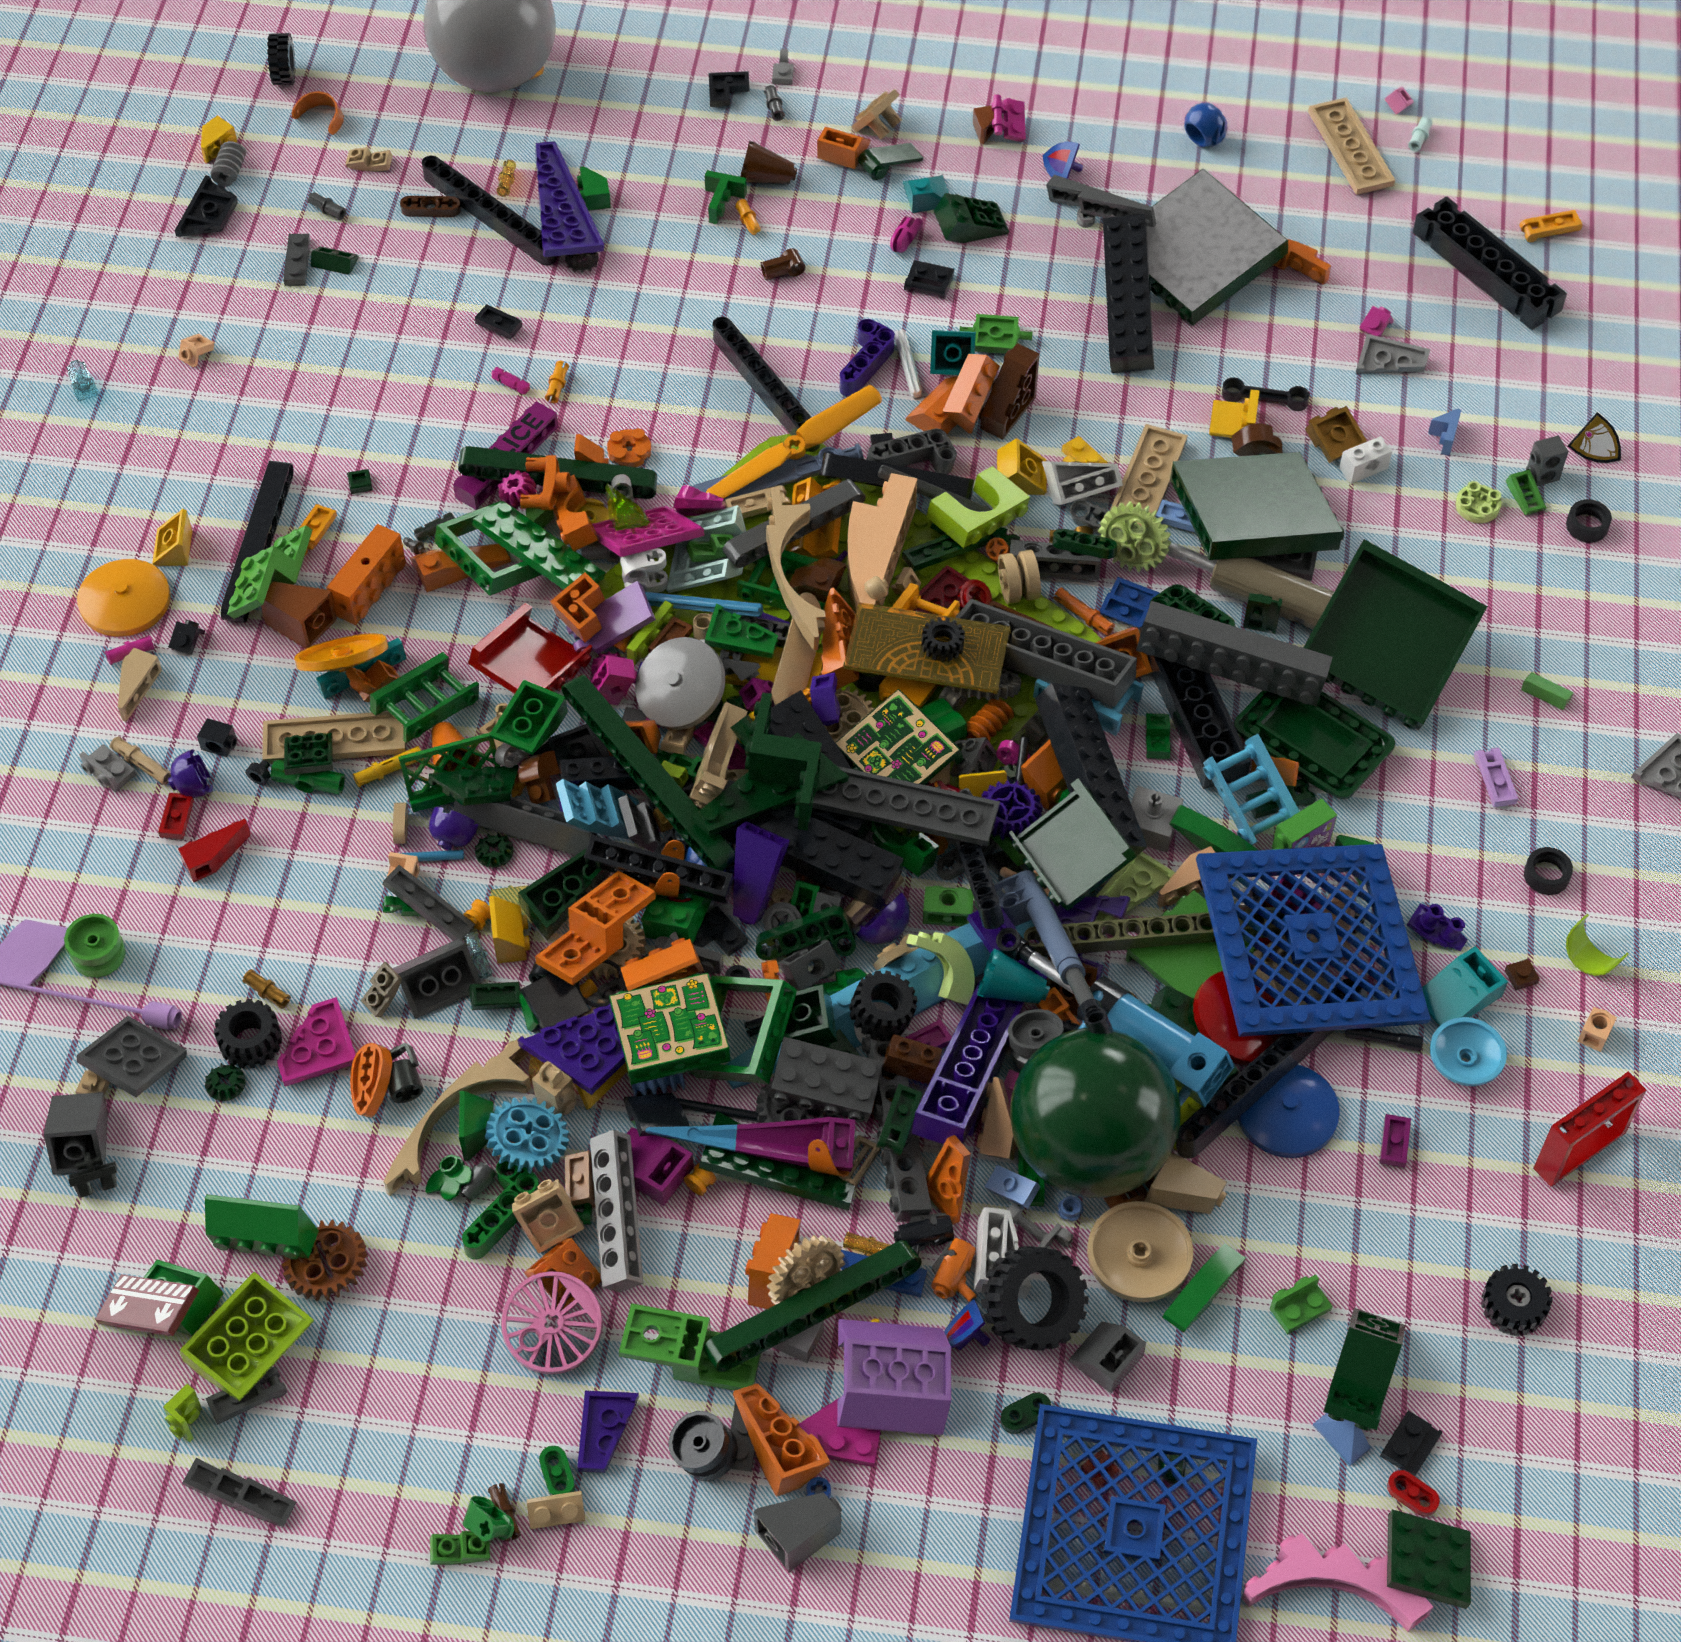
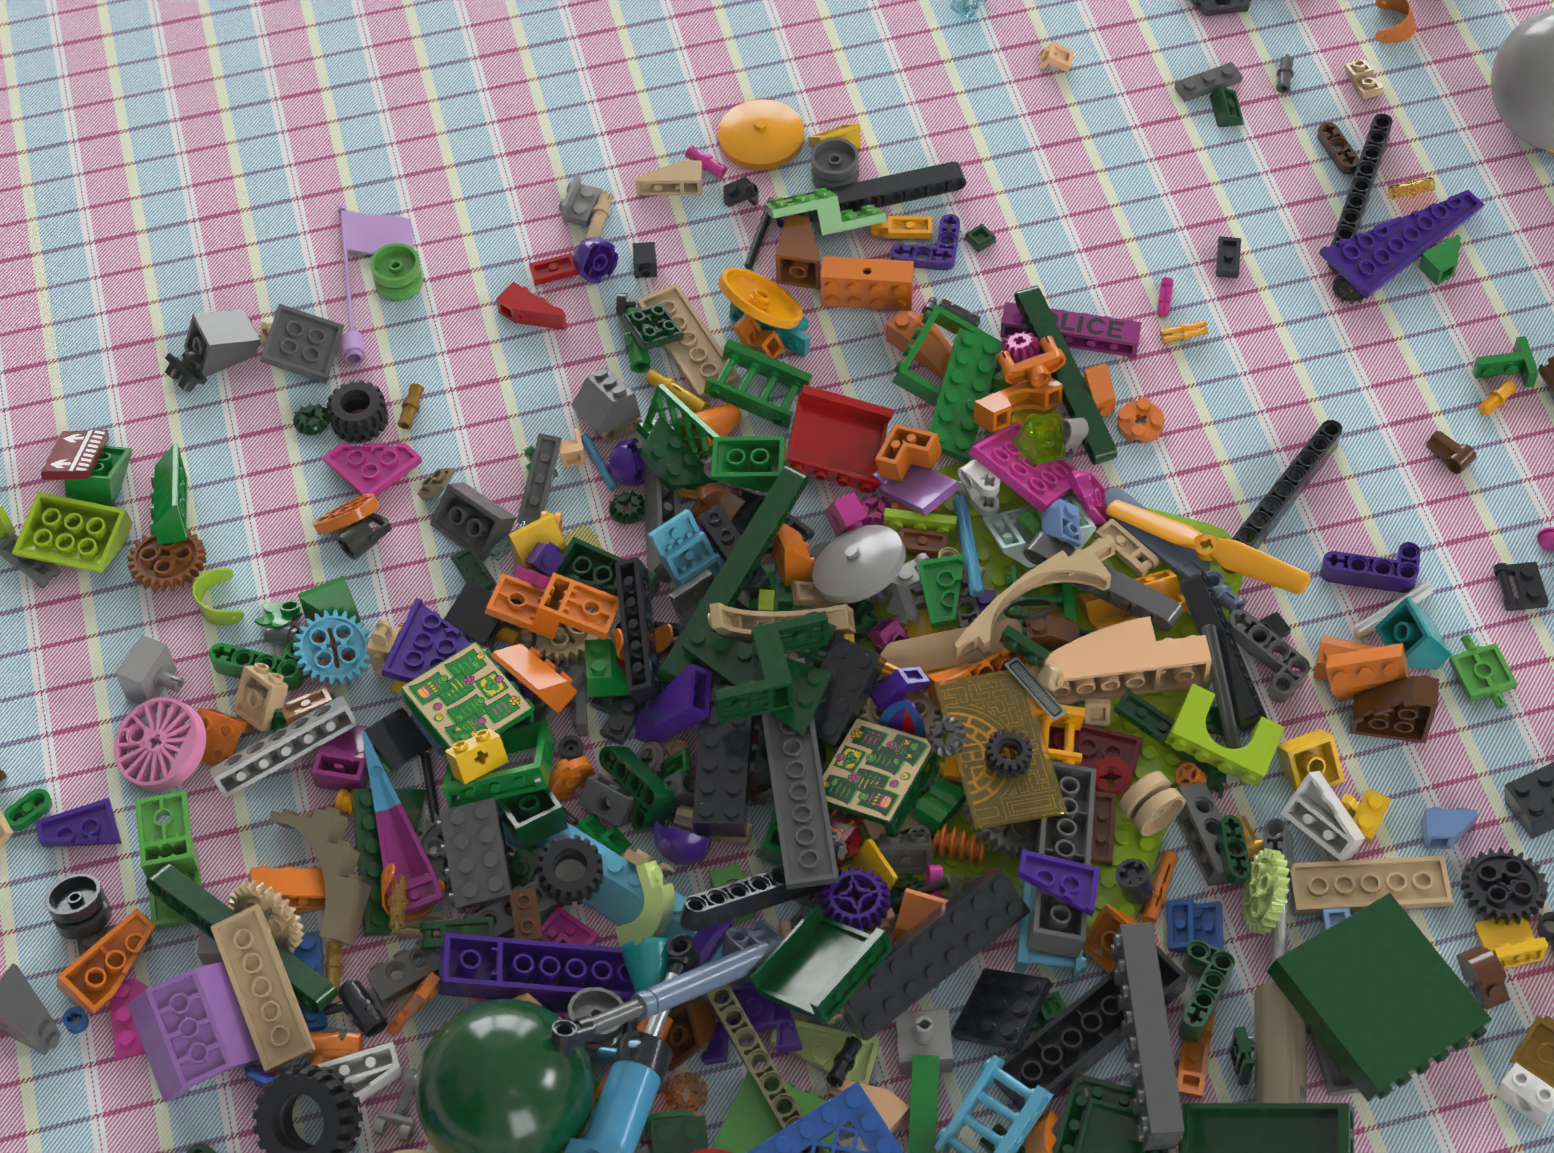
camera: 70 degrees right, 0 degrees up
(210, 550) = (834, 163): none -> dark grey wheel
(242, 639) = (758, 239): none -> black bar
(354, 516) = (940, 251): none -> dark purple beam
(374, 819) = (606, 402): none -> dark grey slope
(401, 1244) = (202, 584): none -> lime piece
(462, 1309) = (148, 671): none -> light grey brick
(497, 1075) = (285, 577): tan slope -> none
(531, 922) = (545, 558): none -> dark purple brick
(544, 940) = (531, 576): none -> dark pink beam
(726, 524) = (1062, 522): none -> medium blue slope
(739, 1031) = (476, 756): none -> yellow brick
(808, 1203) = (345, 892): none -> dark tan arch
(809, 582) = (1029, 616): none -> black piece
(844, 589) = (1027, 648): none -> dark green plate
(848, 1156) = (397, 903): none -> clear yellow pin
(859, 705) = (903, 717): none -> shield
(883, 602) = (1036, 690): none -> sticker
(884, 1294) = (263, 988): none -> tan plate
(908, 685) = (954, 740): none -> dark grey gear
(1077, 648) = (1061, 878): none -> dark purple wing
(1080, 618) = (1135, 880): none -> black piece
(1120, 414) = (1446, 826): none -> medium blue slope
(1152, 750) = (1001, 1009): none -> black plate
(1152, 875) = (844, 1061): none -> black pin
(1204, 402) = (1504, 886): none -> black gear

